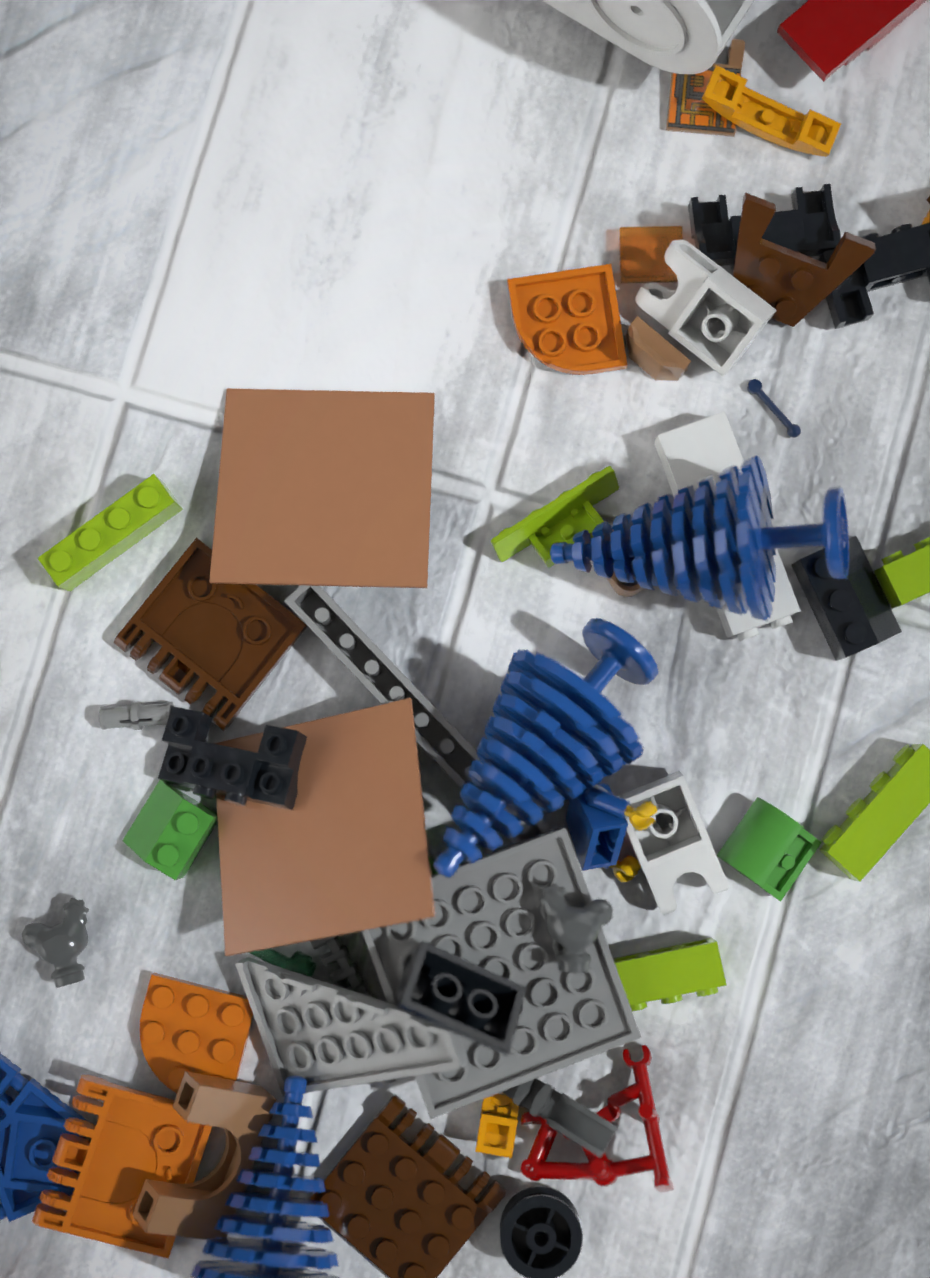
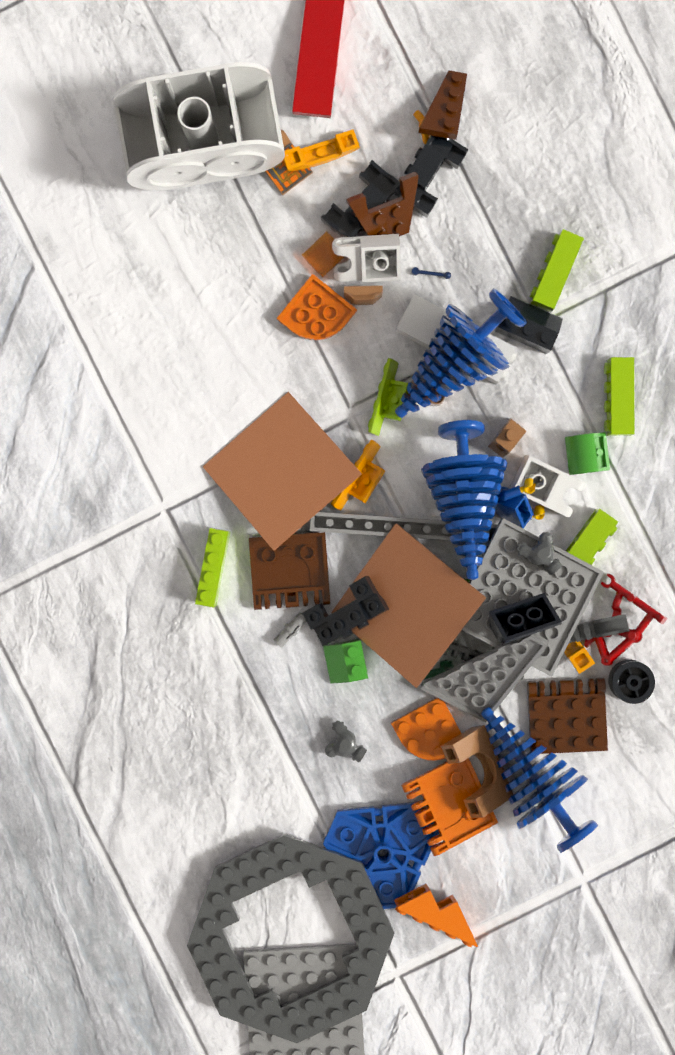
camera: 50 degrees left, 5 degrees up
(424, 607) = (367, 482): none -> light orange bracket
(675, 724) = (507, 438): none -> medium nougat torso

